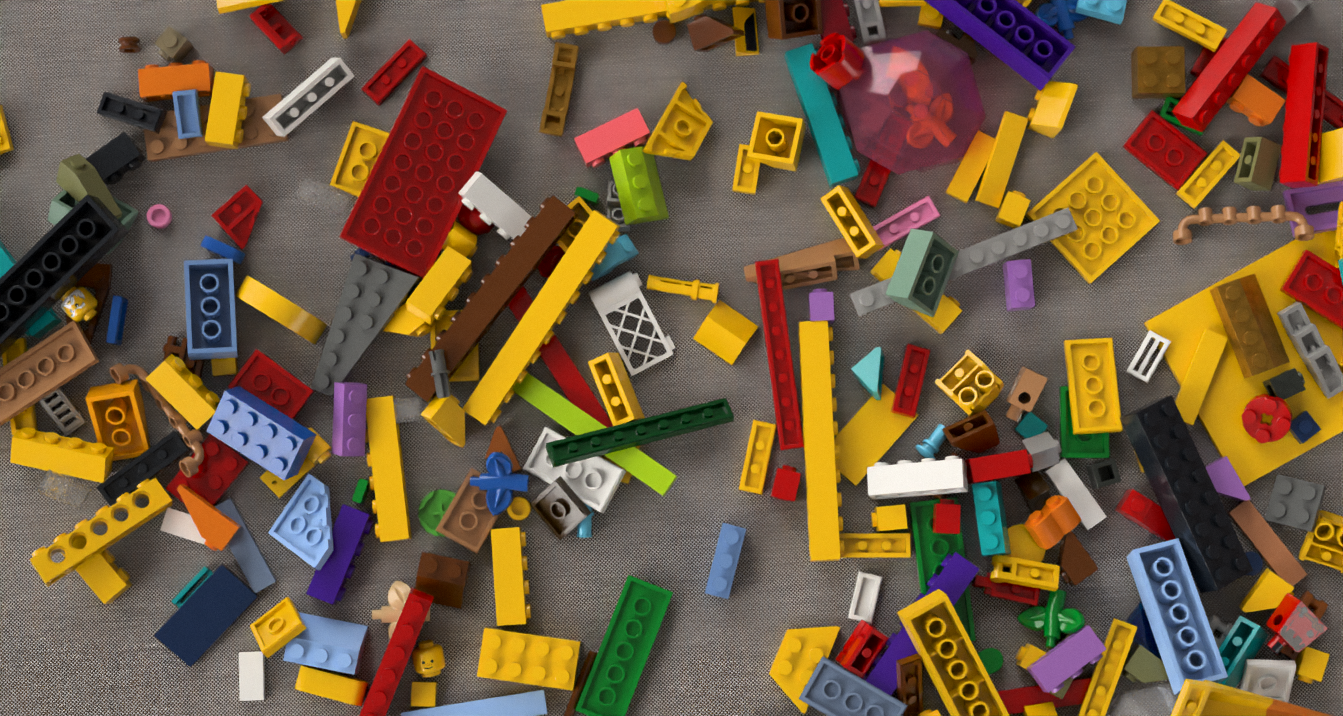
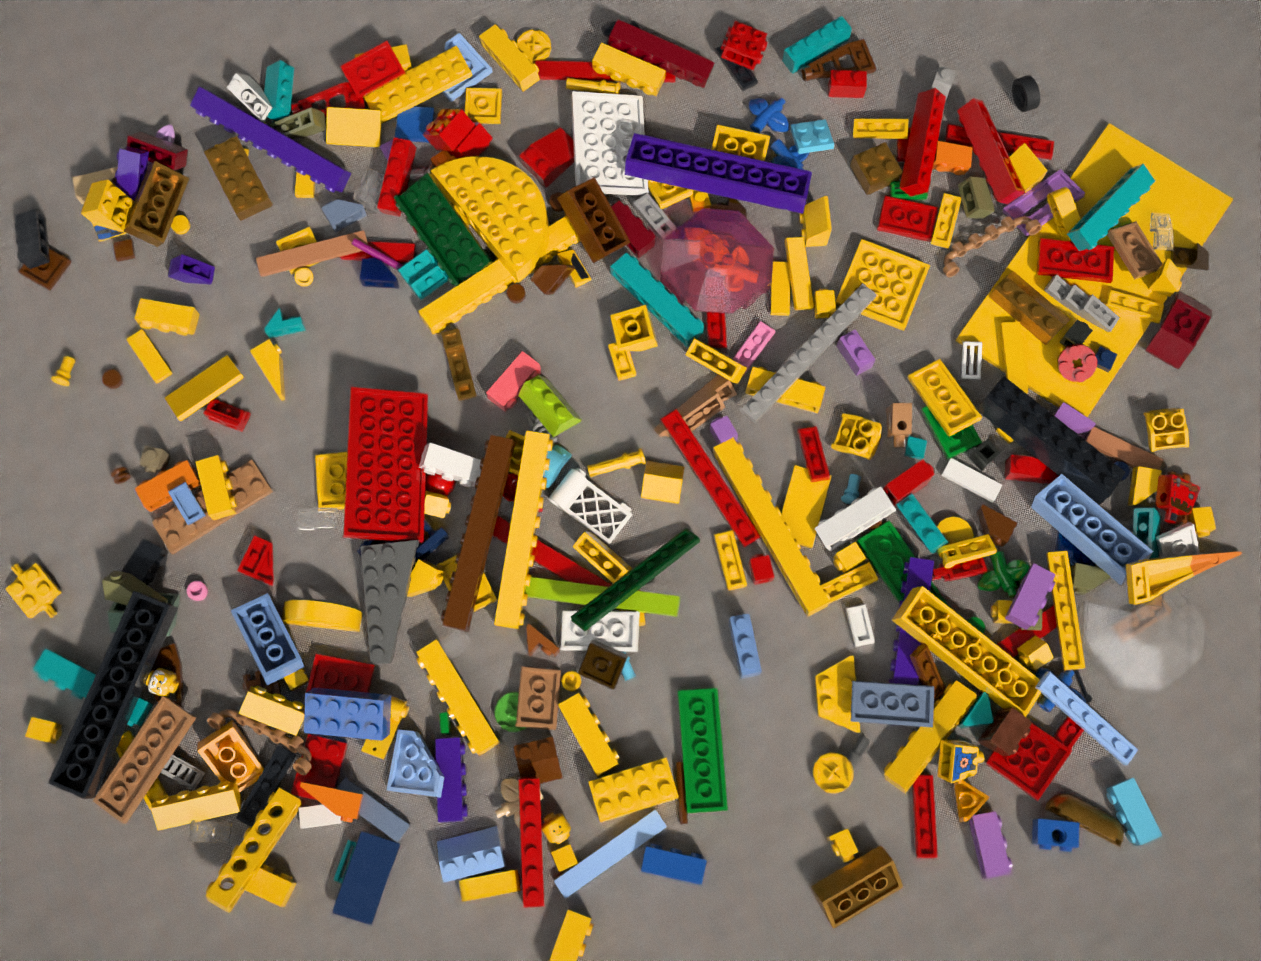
camera: 25 degrees left, 10 degrees down
(117, 320) = (197, 682): blue tile -> none
(131, 112) = (143, 523): black tile -> none
(222, 249) = (254, 592): blue beam -> none
(251, 676) = (423, 909): white tile -> none
(277, 627) = (427, 859): yellow tile -> none
(308, 96) = (273, 450): white brick -> none
(349, 419) = (411, 672): medium lavender brick -> none
(394, 72) = (330, 407): red tile -> none
(440, 286) = (435, 540): yellow brick -> none
(440, 373) = (466, 603): dark grey axle -> none
(447, 418) = (486, 637): yellow slope -> none
(500, 482) = (548, 666): blue plant -> none
(588, 196) = (518, 428): green tile -> none
(679, 128) = (560, 352): yellow wing -> none
(837, 60) = (651, 254): red brick -> none
(862, 648) = (878, 662): red brick -> none
(870, 372) = (781, 462): slope -> none
(922, 272) = (784, 369): sand green slope -> none
(946, 517) = (890, 537): red brick -> none
(973, 433) = (878, 468): reddish brown slope -> none
(1033, 490) = (942, 491): dark brown slope -> none
(1043, 450) = (934, 456): light grey brick -> none
(1052, 522) = (967, 504): orange brick -> none
(1295, 503) = (1128, 413): dark grey plate -> none

